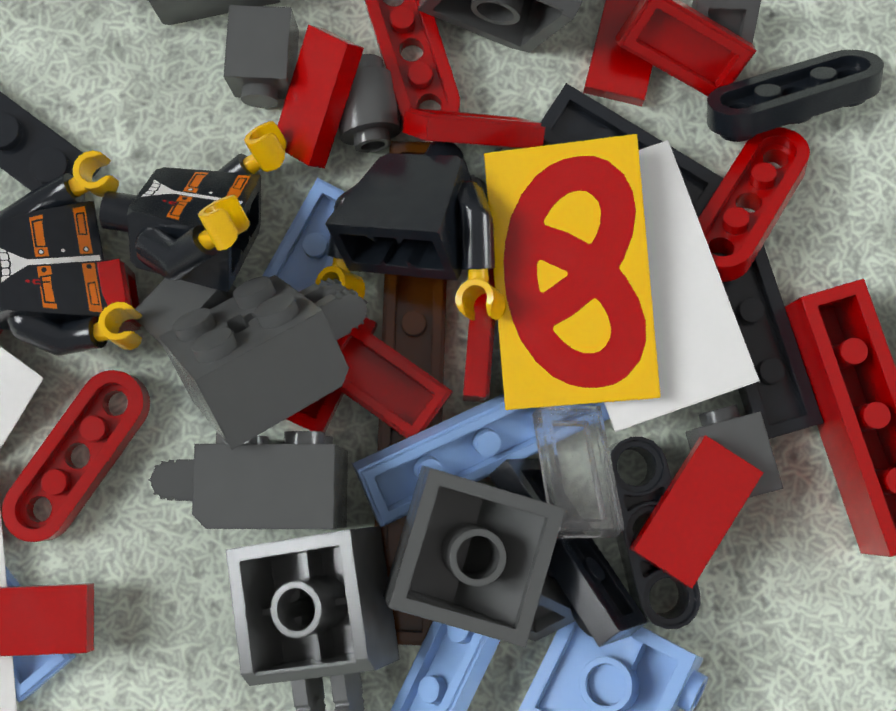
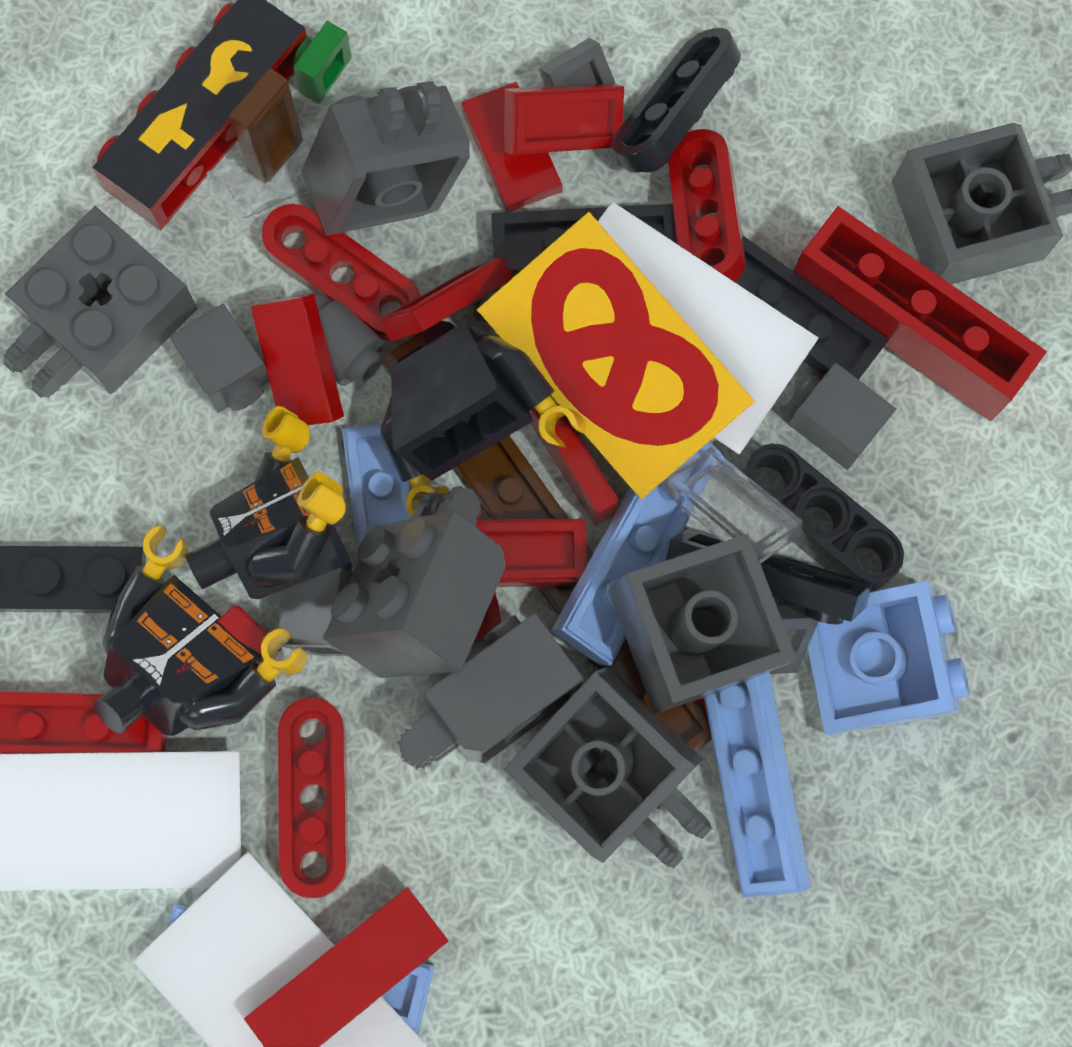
camera: 45 degrees left, 5 degrees down
(696, 511) = (845, 471): red tile -> none

